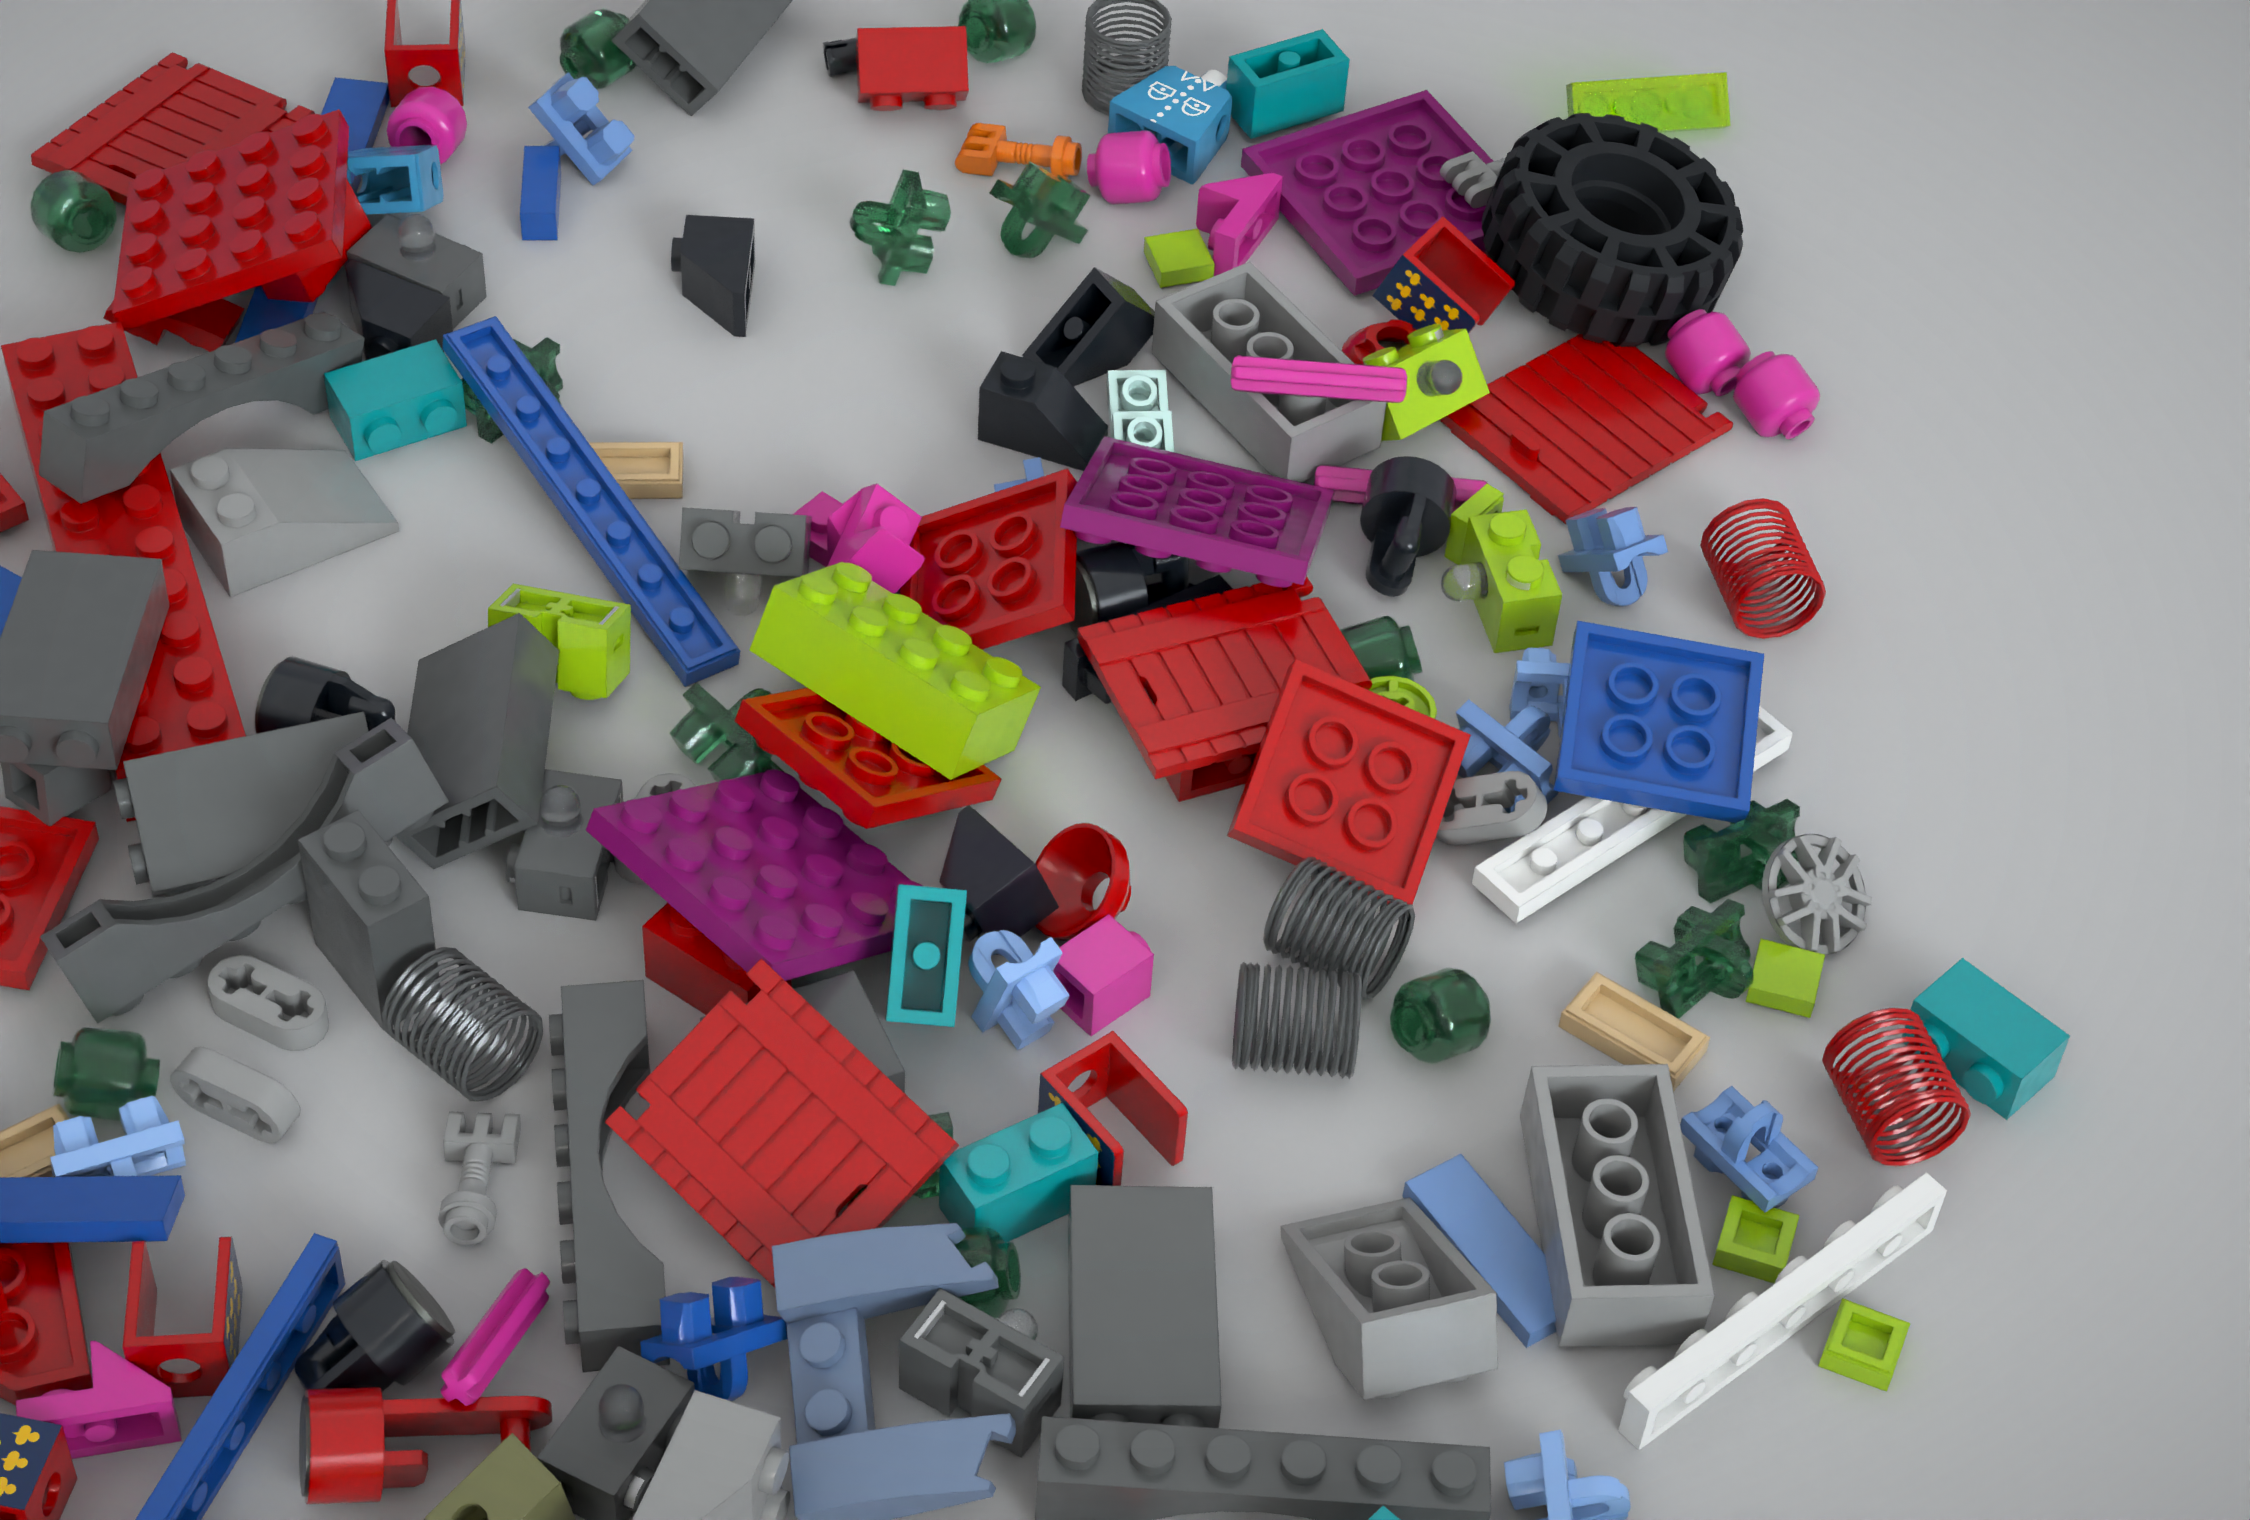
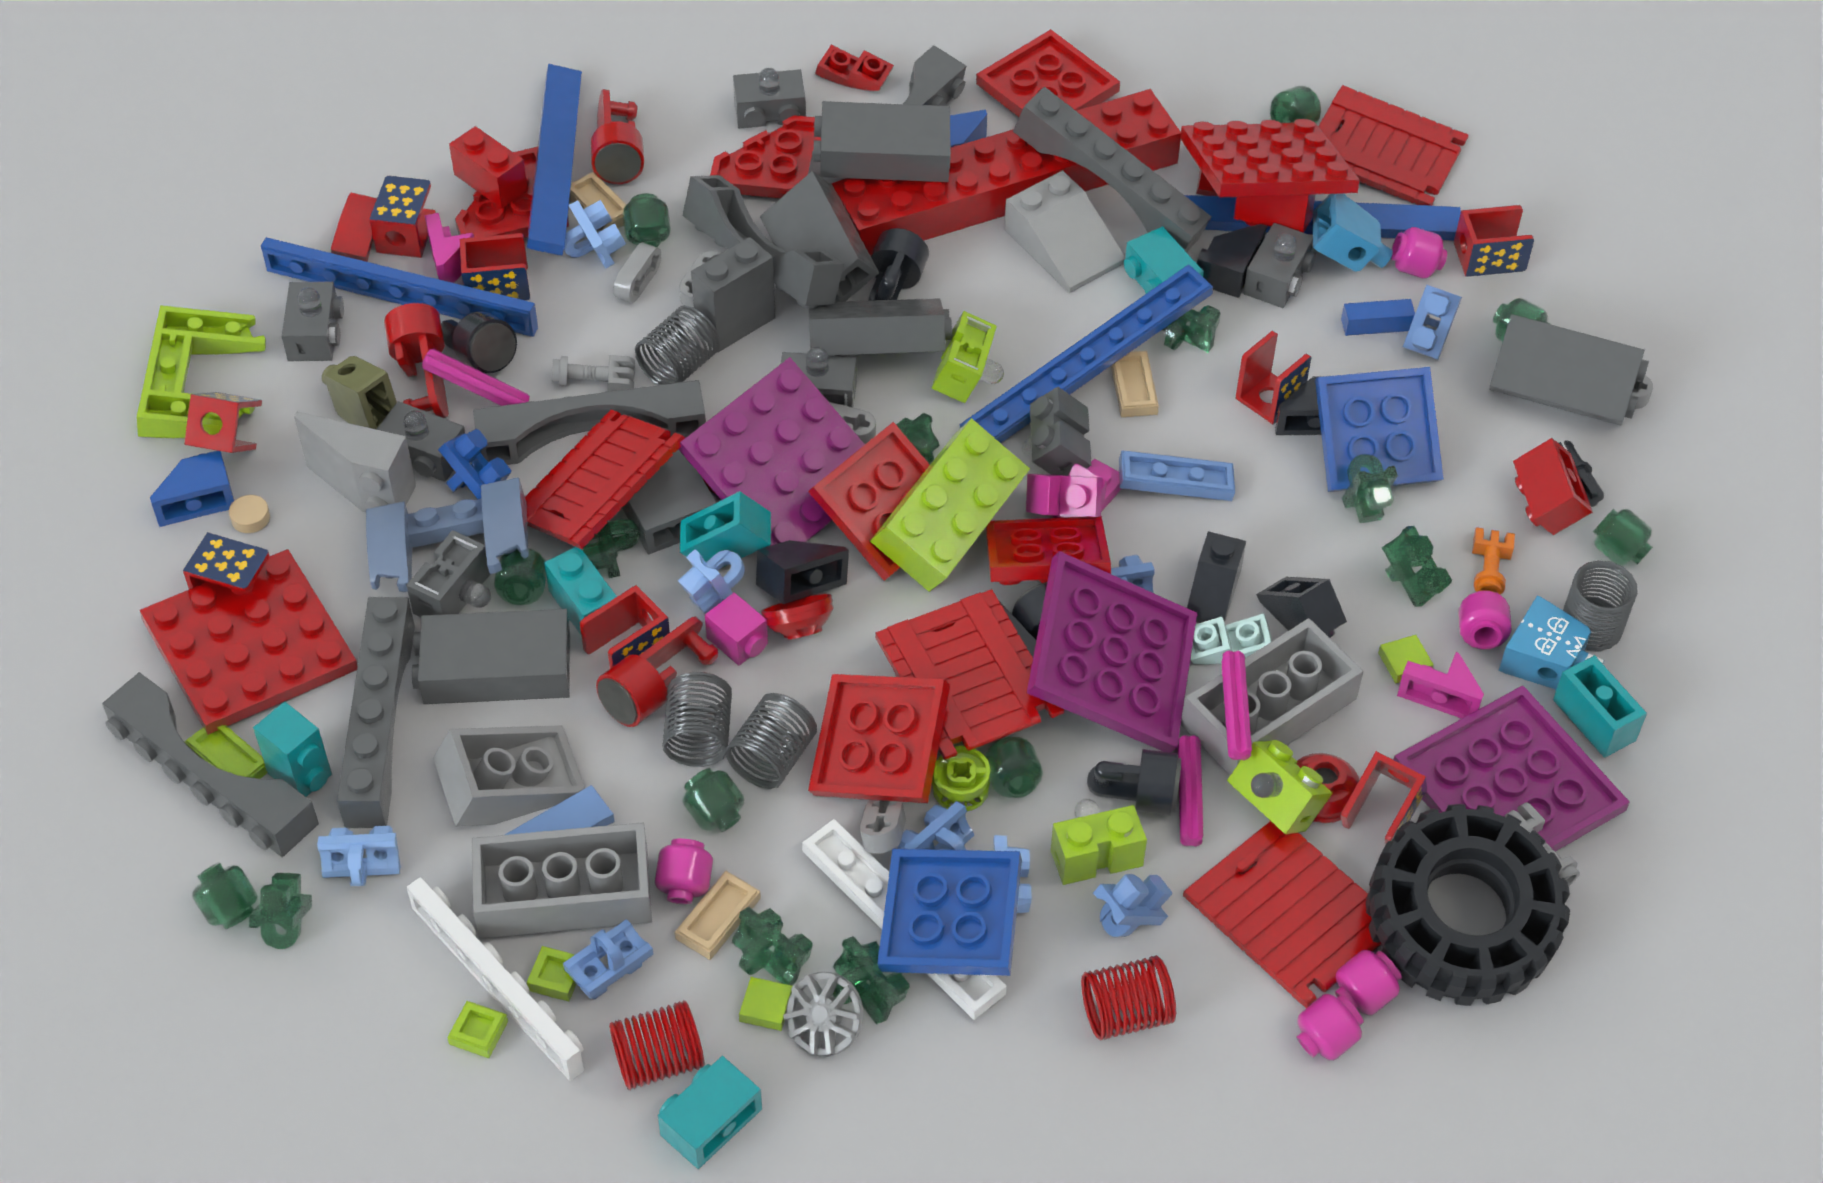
camera: 90 degrees right, 5 degrees up
(694, 301) = (1257, 376): none -> red piece
(792, 200) = (1383, 417): none -> blue plate
(829, 437) = (1176, 475): none -> medium blue tile
(1231, 1095) = (635, 687): none -> red piece
(1485, 501) = (1157, 826): lime tile -> none
(1572, 1039) = (683, 870): none -> dark pink head
(1662, 101) = (1663, 958): clear neon green plate -> none

